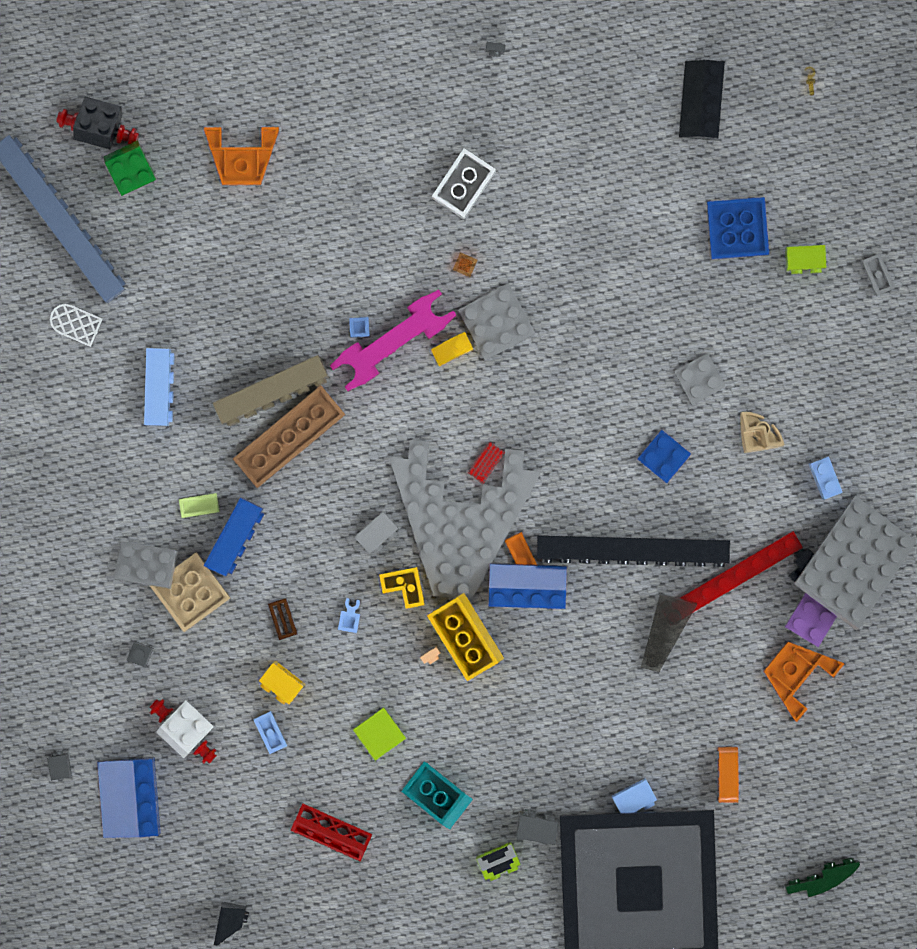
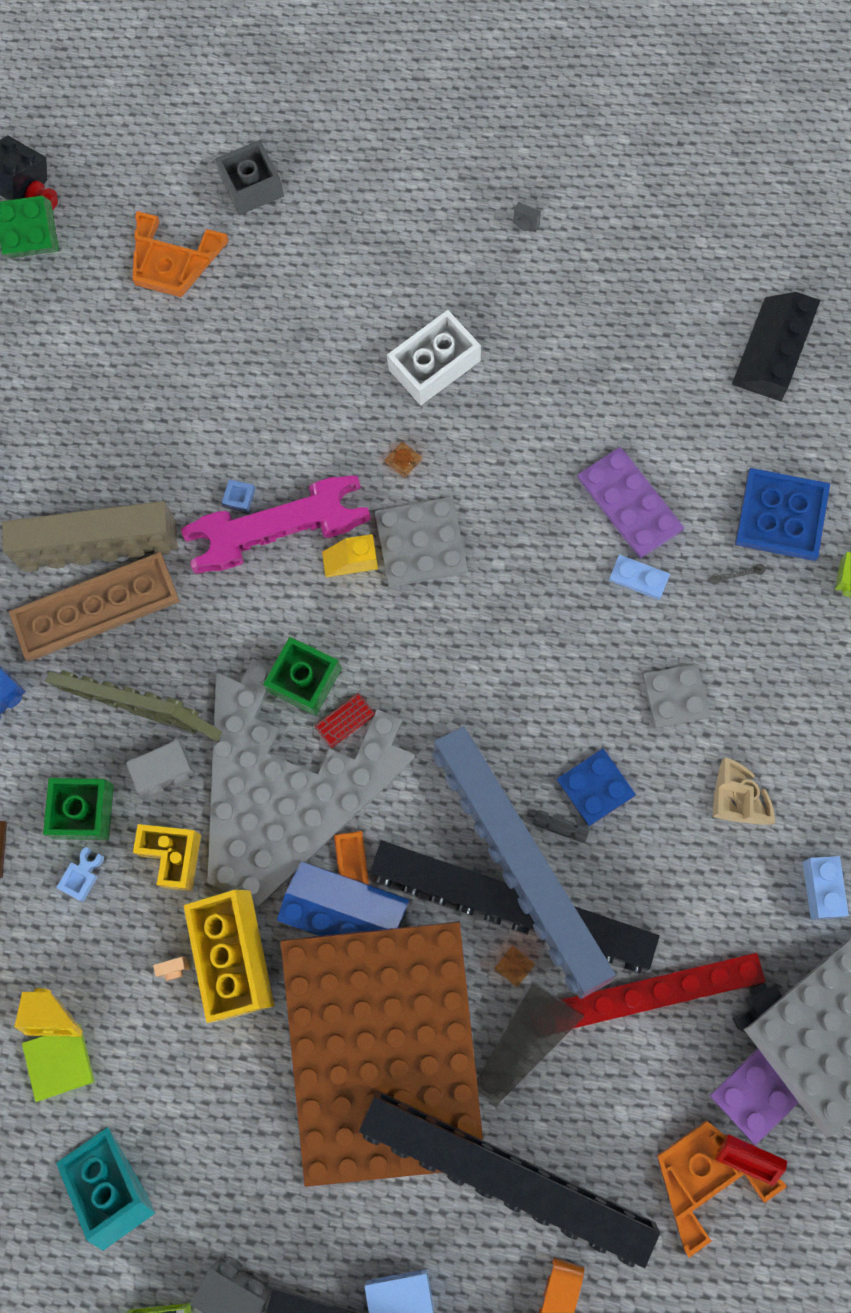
camera: 25 degrees right, 15 degrees down
(279, 76) = (249, 177): none -> dark grey brick
(334, 576) = (78, 809): none -> green brick
(343, 496) = (146, 706): none -> olive wing
(361, 708) = (44, 1015): none -> yellow slope
(449, 443) = (302, 676): none -> green brick
(580, 663) = (382, 1017): none -> dark orange plate
(629, 521) = (523, 864): none -> sand blue brick
(632, 249) = (630, 502): none -> medium lavender plate
(645, 586) = (514, 966): none -> clear orange plate
(648, 488) = (561, 826): none -> dark grey axle
(653, 302) = (639, 577): none -> light blue plate
(678, 711) = (510, 1179): none -> black brick
(704, 288) = (759, 569): none -> clear smoke hinge
(818, 656) = (751, 1160): none -> red tile

